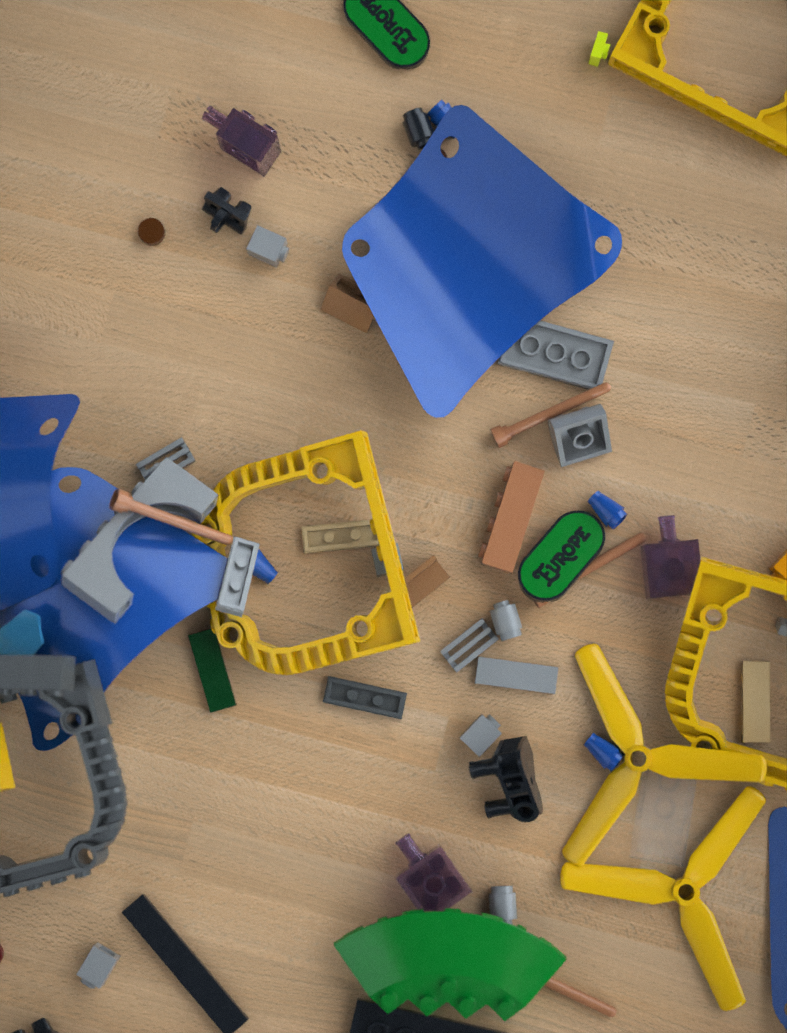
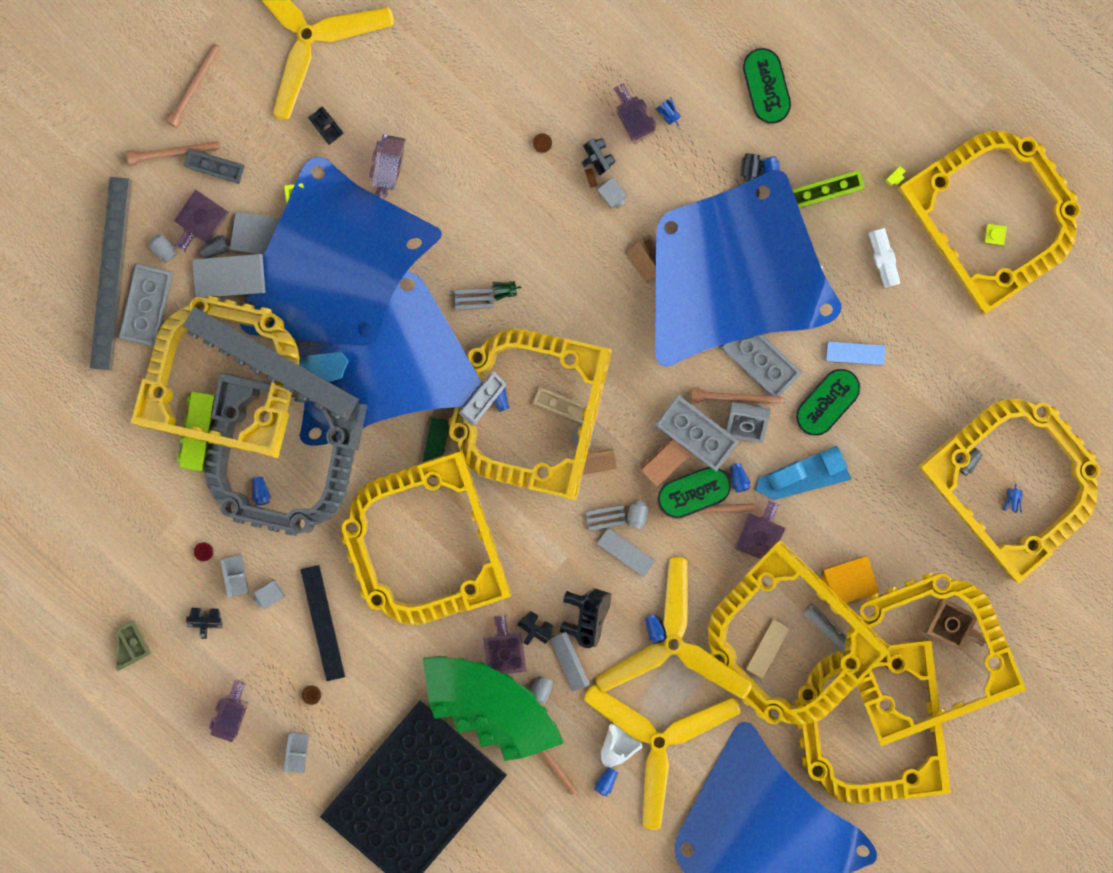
camera: 20 degrees right, 5 degrees up
(21, 841) = (260, 492): none -> blue cone
(42, 965) = (234, 576): none -> light grey panel
(93, 572) = (465, 321): light grey arch -> none
(122, 502) = (436, 316): nougat piece -> none
(201, 426) = (505, 289): none -> dark green piece
(231, 241) = (591, 177): none -> reddish brown tile
(247, 689) = (453, 473): none -> yellow arch
(292, 116) = (670, 113): none -> blue piece
(365, 697) = (522, 516): dark grey tile -> none
(465, 832) = (527, 624): none -> black hips
(481, 734) = (583, 577): light grey brick -> none
(519, 849) = (569, 661): none -> light grey tile
(526, 480) = (697, 433): none -> light grey tile
(530, 101) = (829, 189): none -> lime brick
(638, 152) = (884, 258): none -> white piece
(638, 925) = (618, 746): none -> white helmet
(646, 978) = (606, 782): none -> blue cone
(664, 360) = (828, 402): none -> green tile
(665, 284) = (855, 353): none -> light blue tile
(683, 466) = (805, 475): none -> dark azure panel
(755, 57) = (995, 234): none -> neon yellow plate

